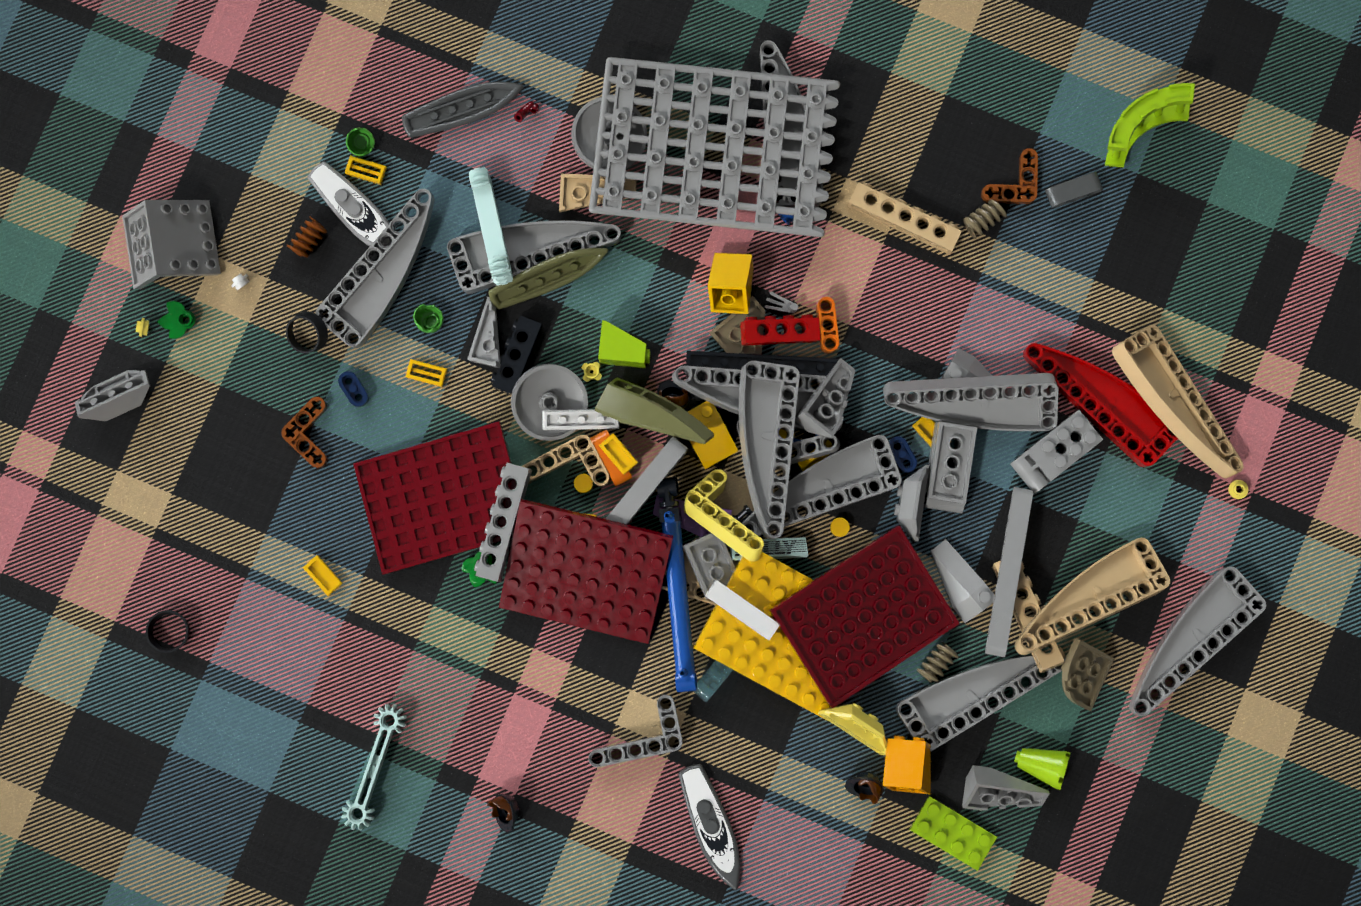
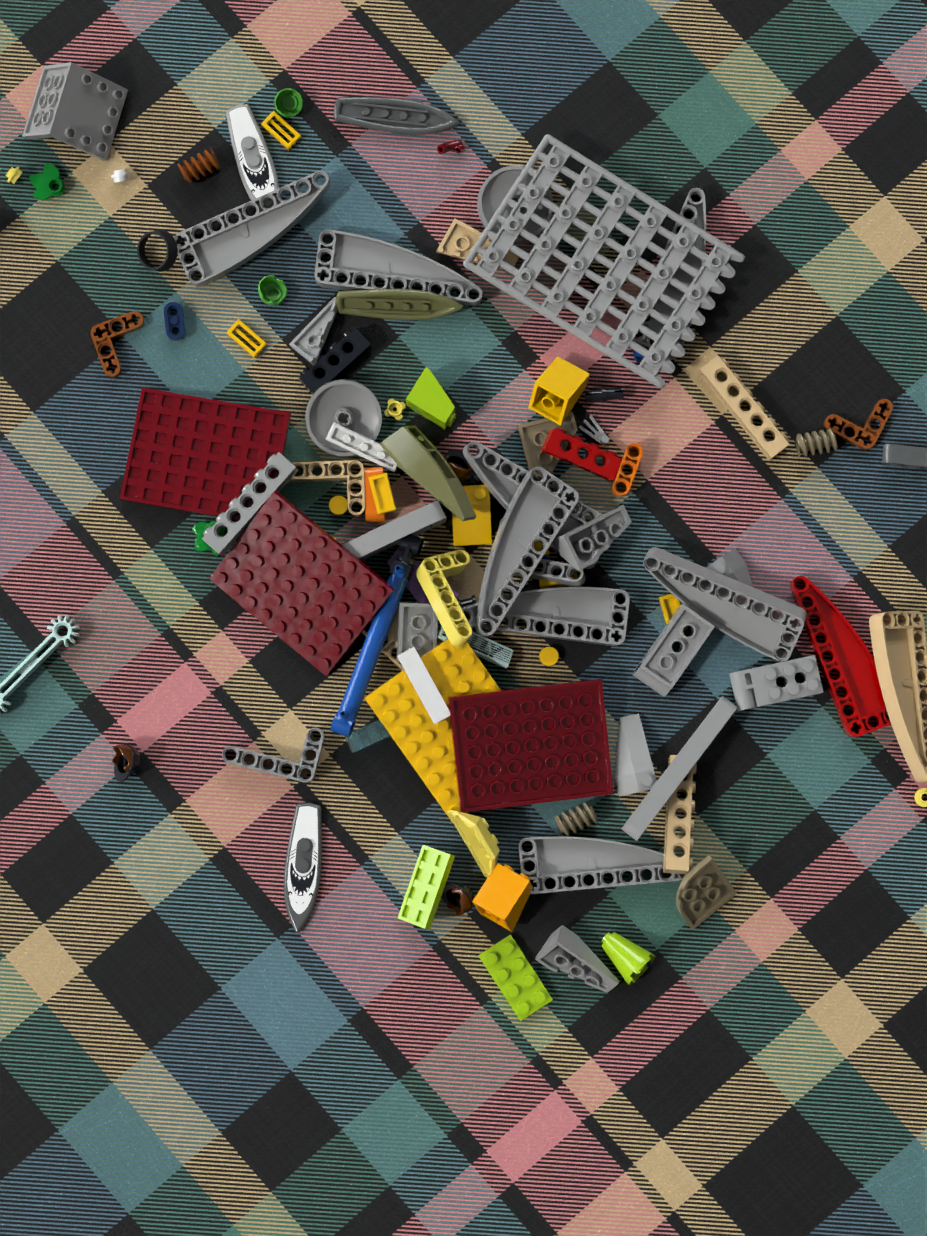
camera: 15 degrees right, 0 degrees up
(322, 575) = (66, 474): yellow tile -> none
(490, 226) = (368, 235): light aqua arm -> none
(773, 267) = (604, 394): none -> black pin
(805, 365) = (527, 461): black tile -> none
(833, 791) = (426, 887): none -> plate
(903, 454) = (637, 619): dark blue plate -> none
(911, 502) = (622, 667): light grey wedge -> none
(1102, 582) = (758, 818): tan beam -> none
(1200, 619) = (830, 897): light grey beam -> none

